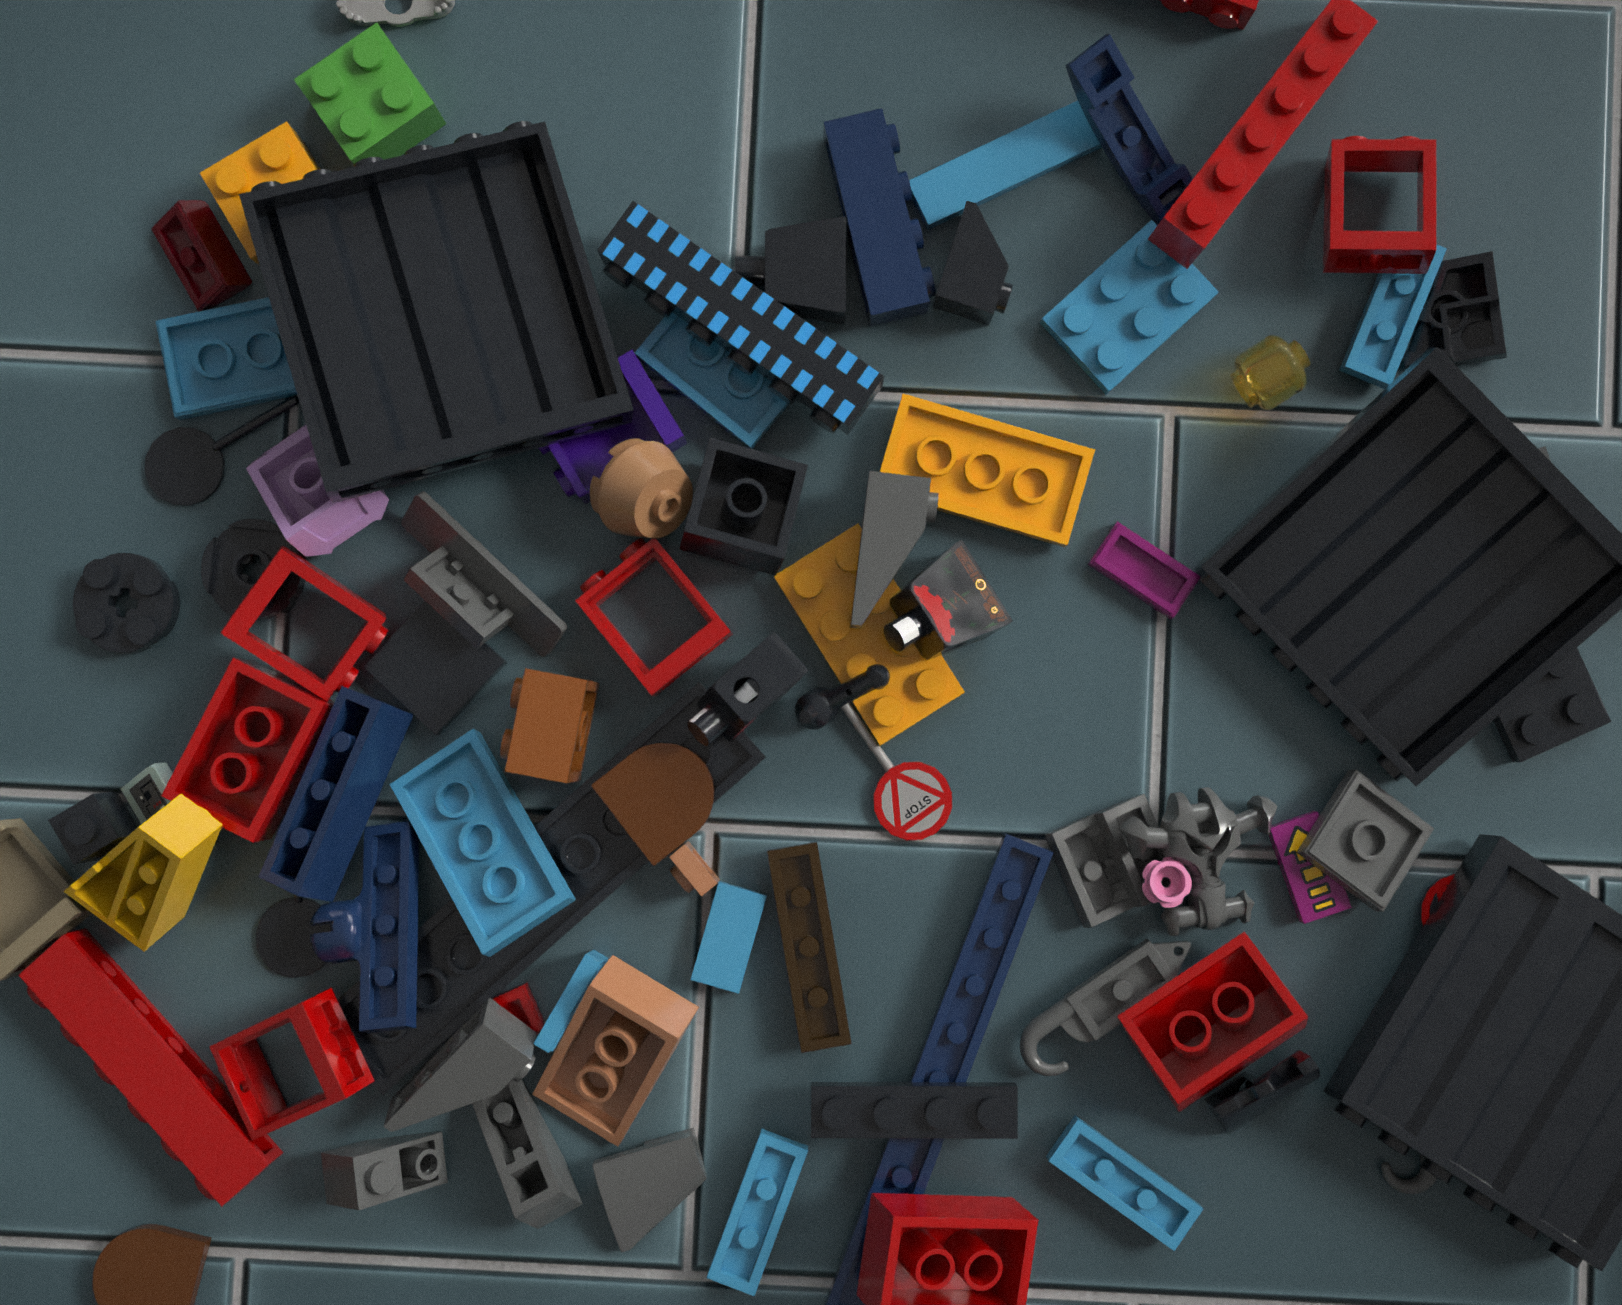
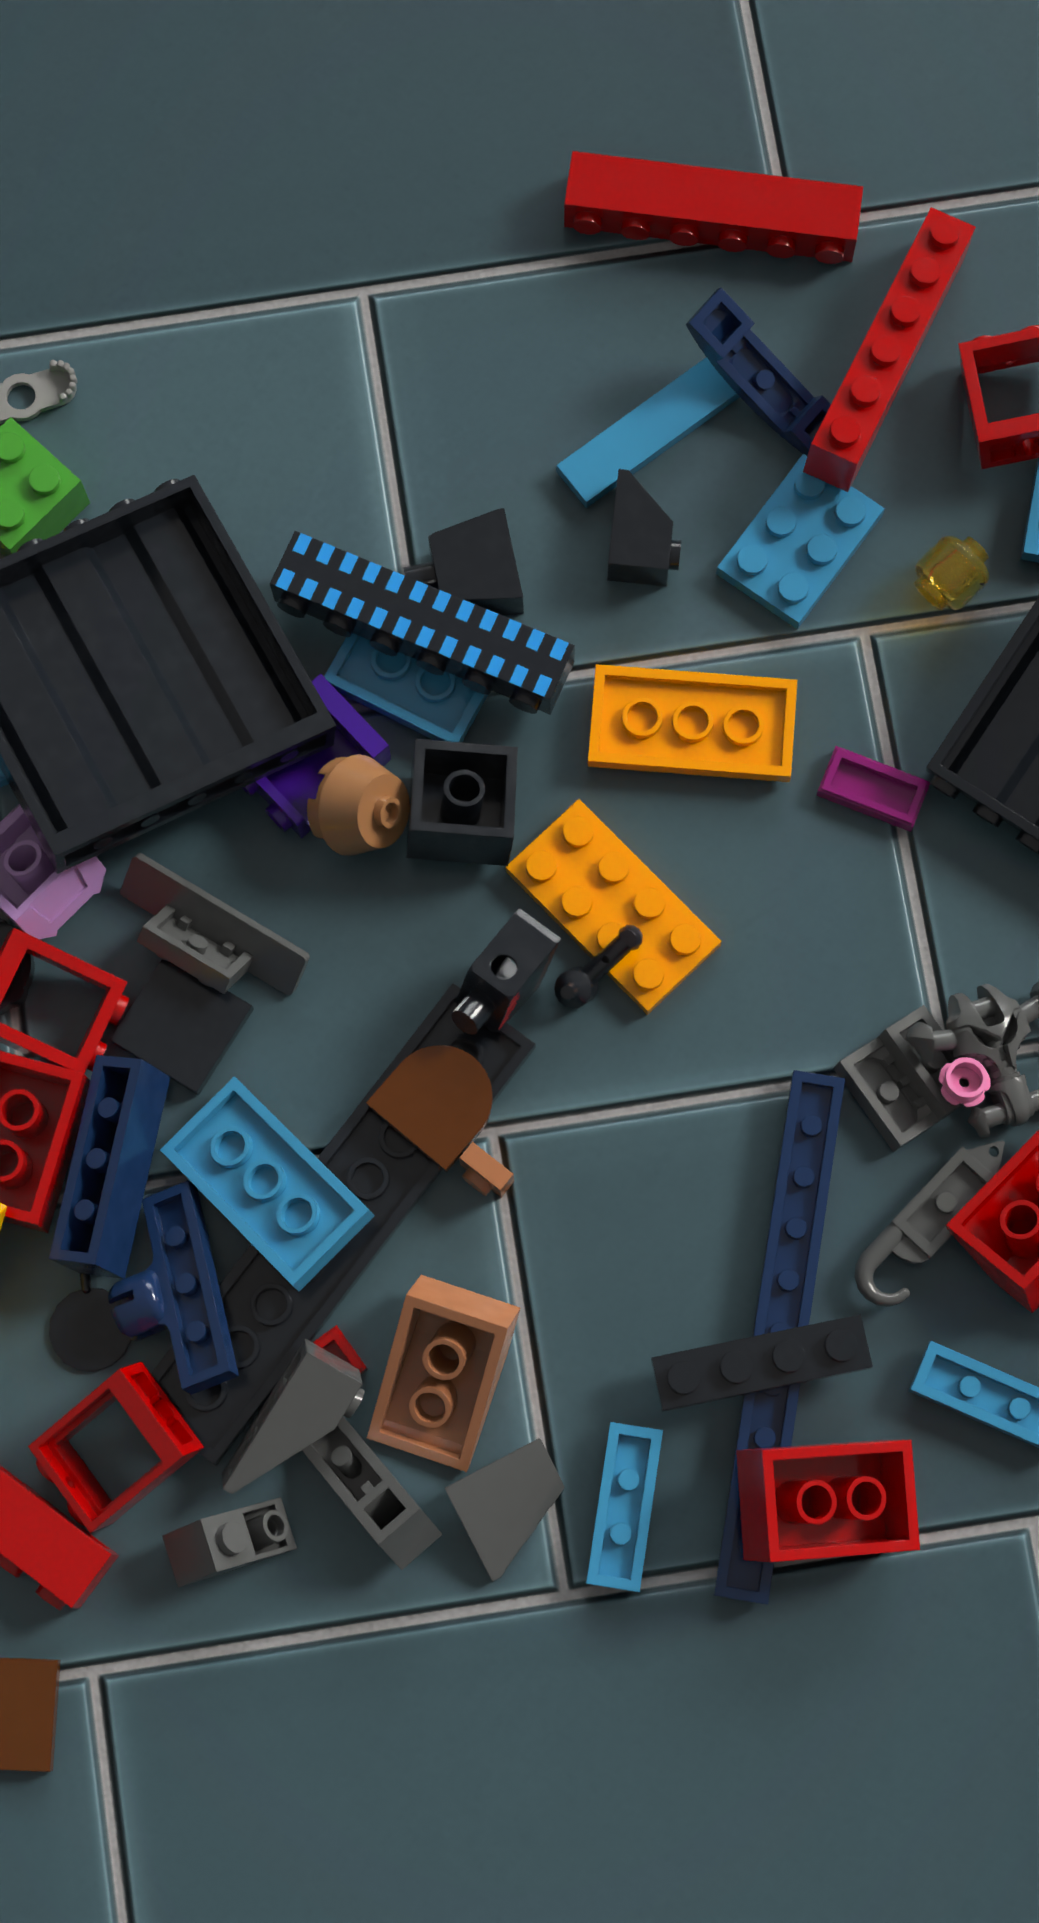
camera: 10 degrees left, 10 degrees down
(549, 726) = (314, 1051): dark orange brick -> none
(570, 999) = (384, 1333): dark azure tile -> none
(603, 586) = (436, 959): red window -> none
(728, 937) = (535, 1235): dark azure tile -> none
(809, 947) = (619, 1225): dark brown plate -> none
(877, 217) = (536, 508): dark blue brick -> none
(891, 527) = (613, 789): dark grey slope -> none
(911, 796) = (689, 1059): piece -> none
(945, 606) = (684, 858): black torso -> none

